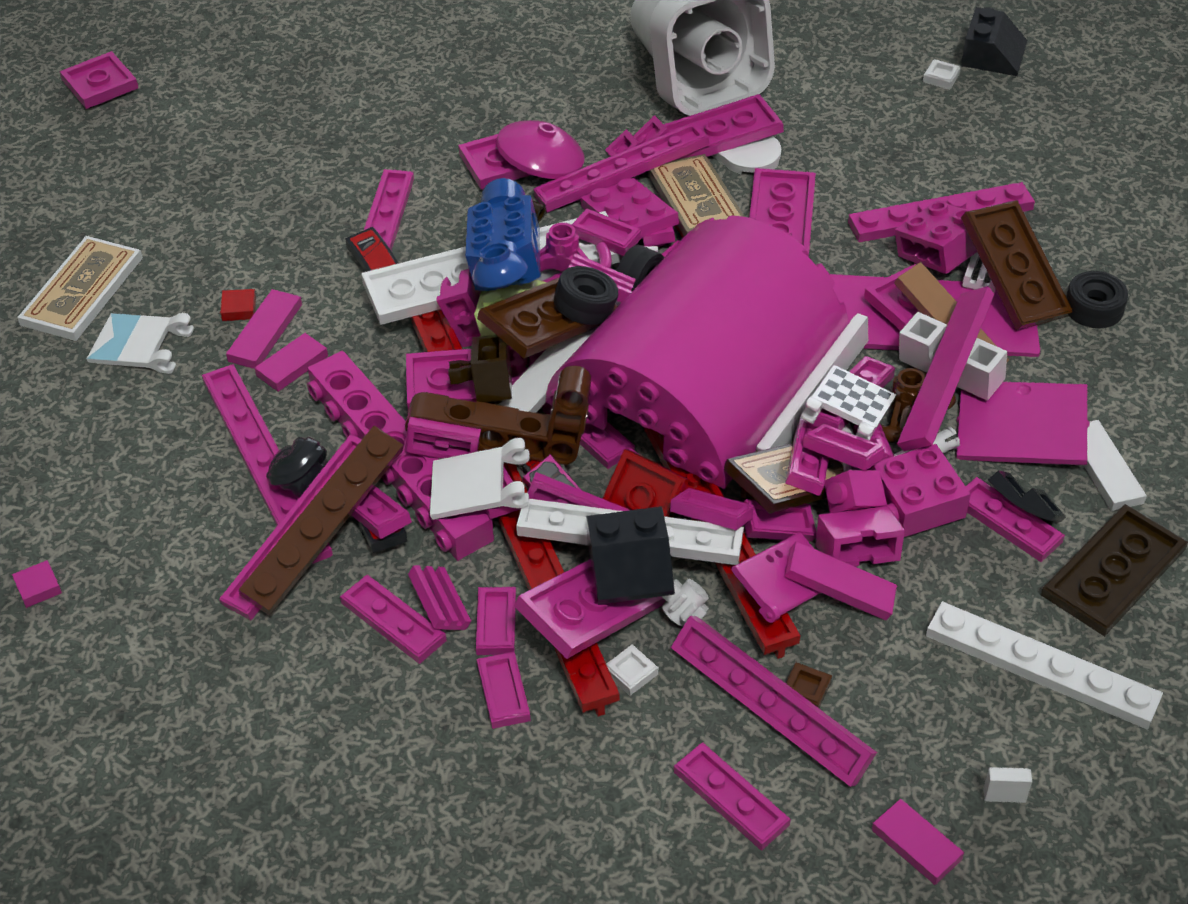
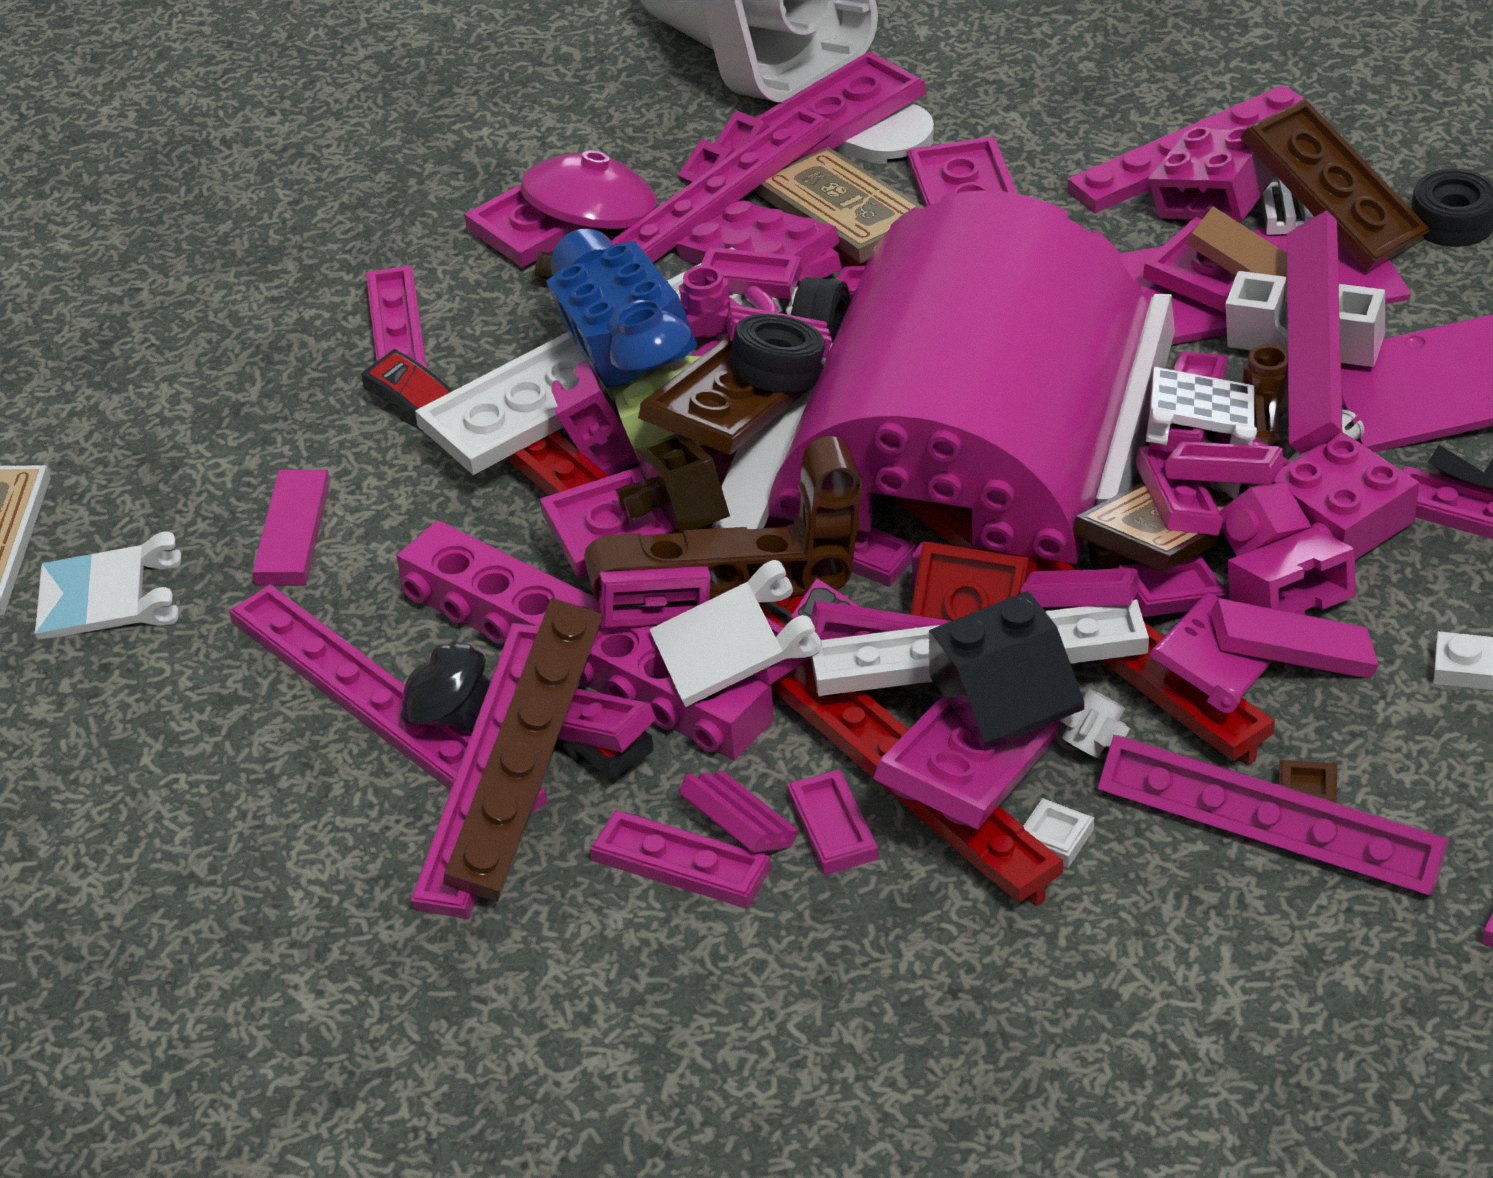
camera: 15 degrees left, 5 degrees down
(36, 583) = (116, 956): dark pink tile -> none
(238, 304) = (235, 504): red tile -> none
(291, 362) = (355, 561): dark pink tile -> none
(503, 690) = (888, 907): dark pink tile -> none
(732, 796) = (1274, 952): dark pink tile -> none

